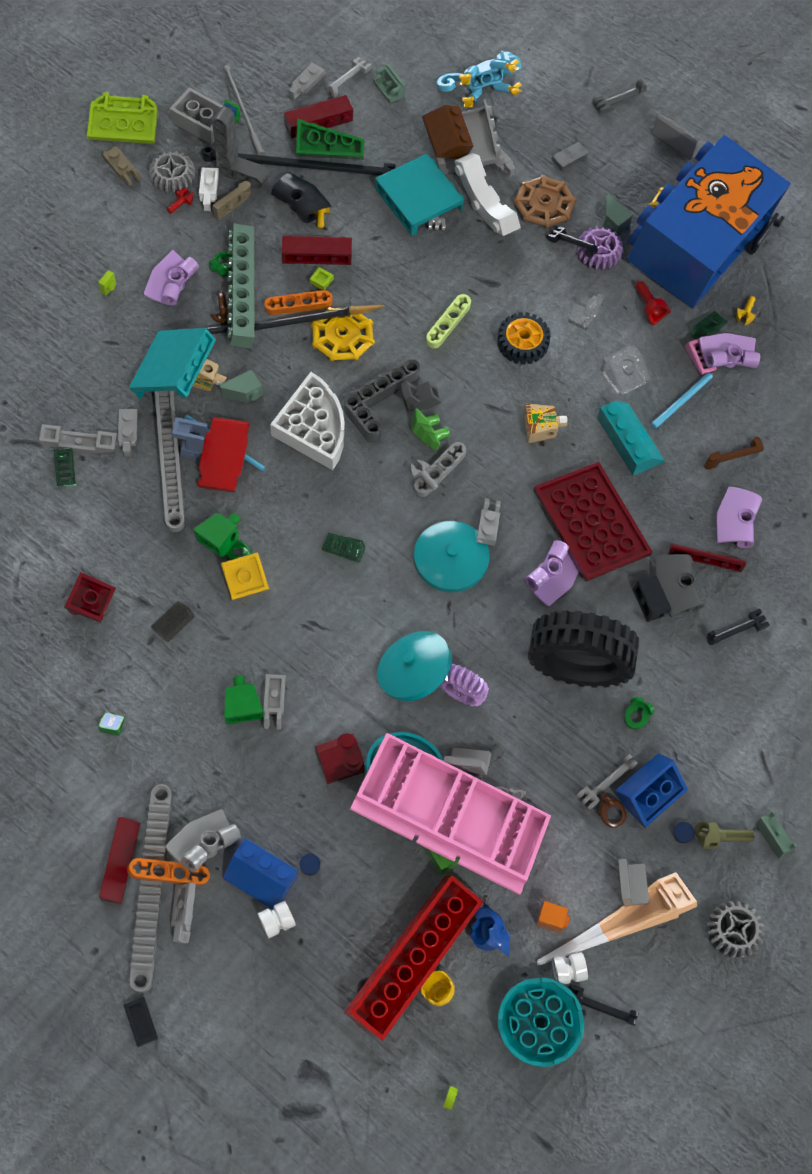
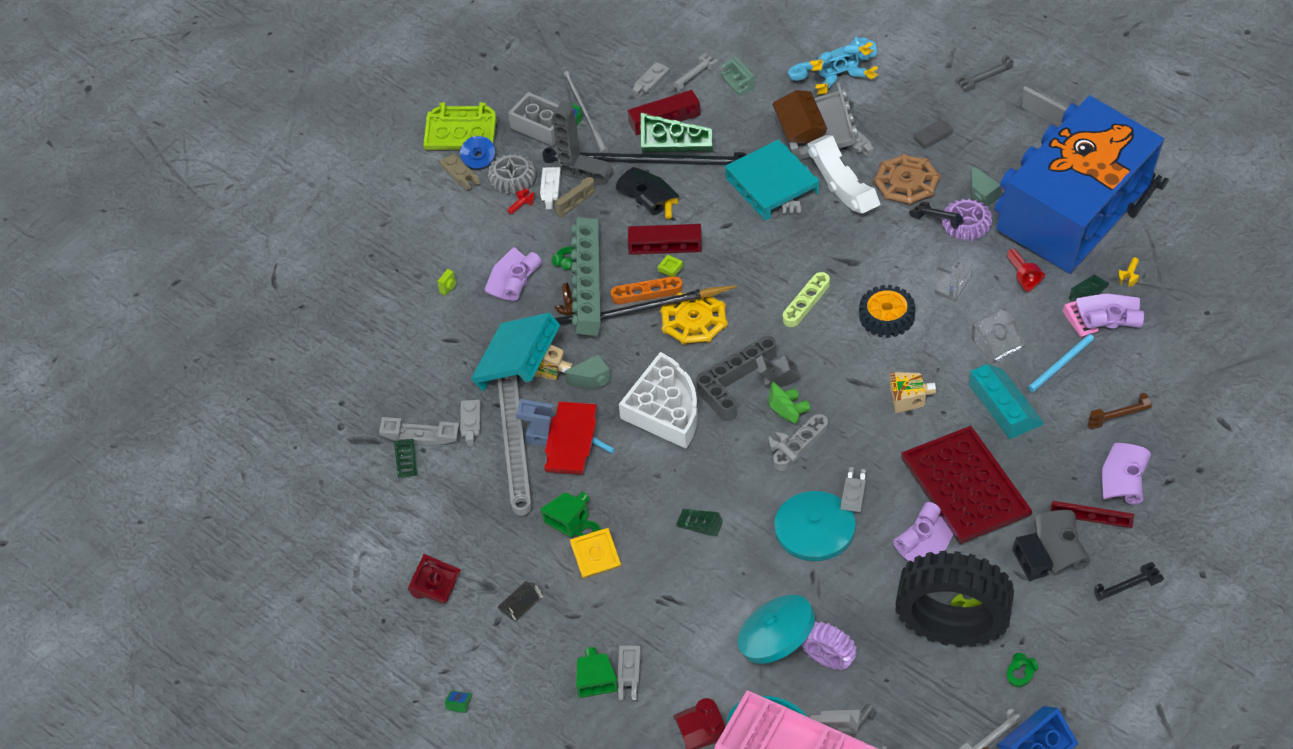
camera: 10 degrees right, 15 degrees down
(134, 141) = (477, 145): none -> blue dish

